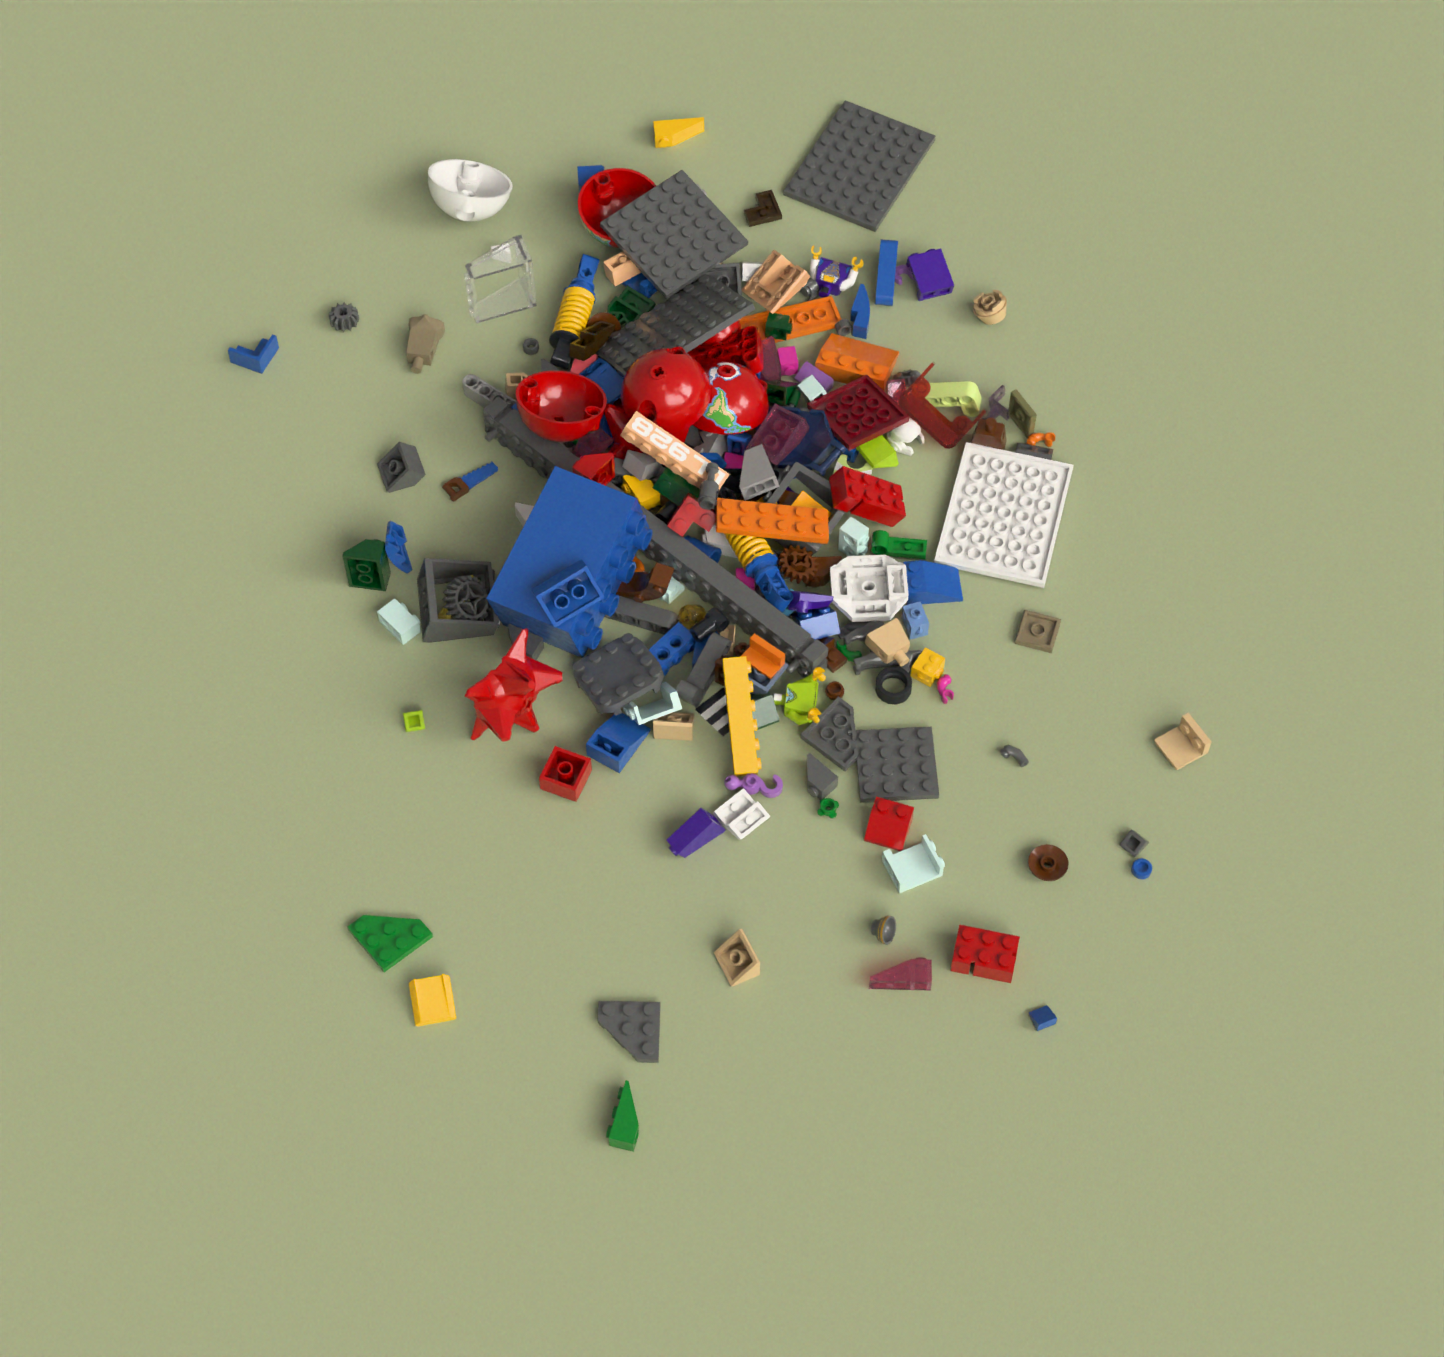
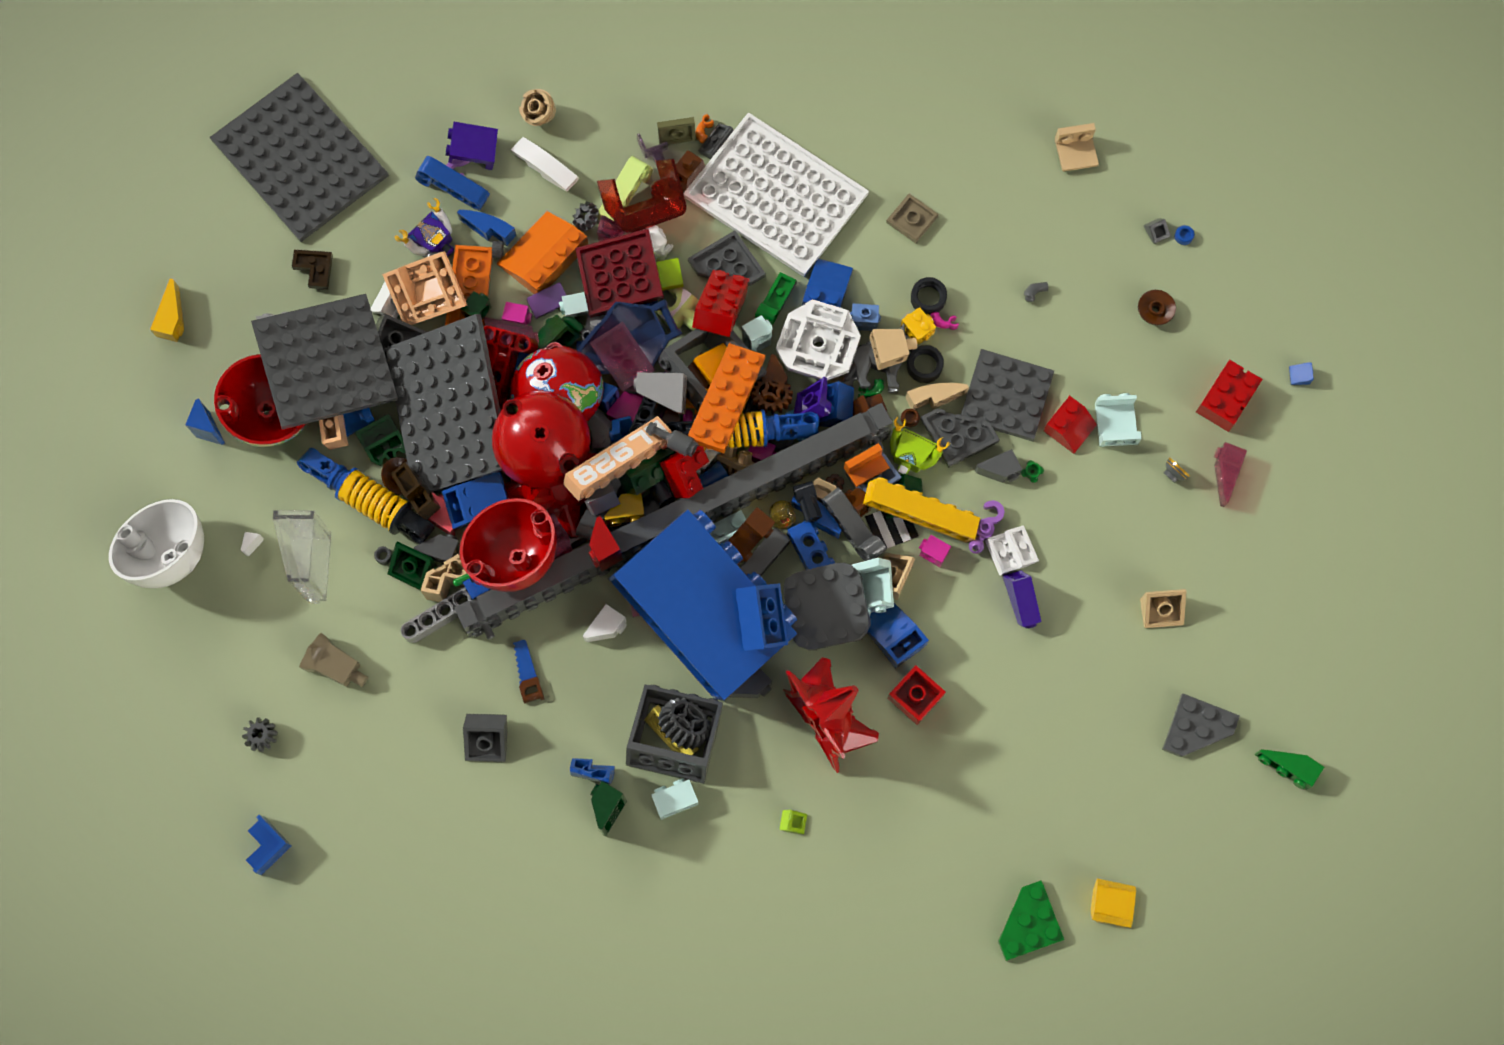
camera: 70 degrees left, 15 degrees up
(529, 360) = (410, 565): none -> dark green slope
(712, 749) = (934, 550): none -> dark pink brick
(728, 560) = (734, 461): none -> tan hips
(865, 701) = (935, 394): none -> tan slope
(920, 498) = (730, 256): none -> dark grey plate
(940, 332) = (545, 164): none -> white slope
(963, 654) = (933, 283): none -> black tyre

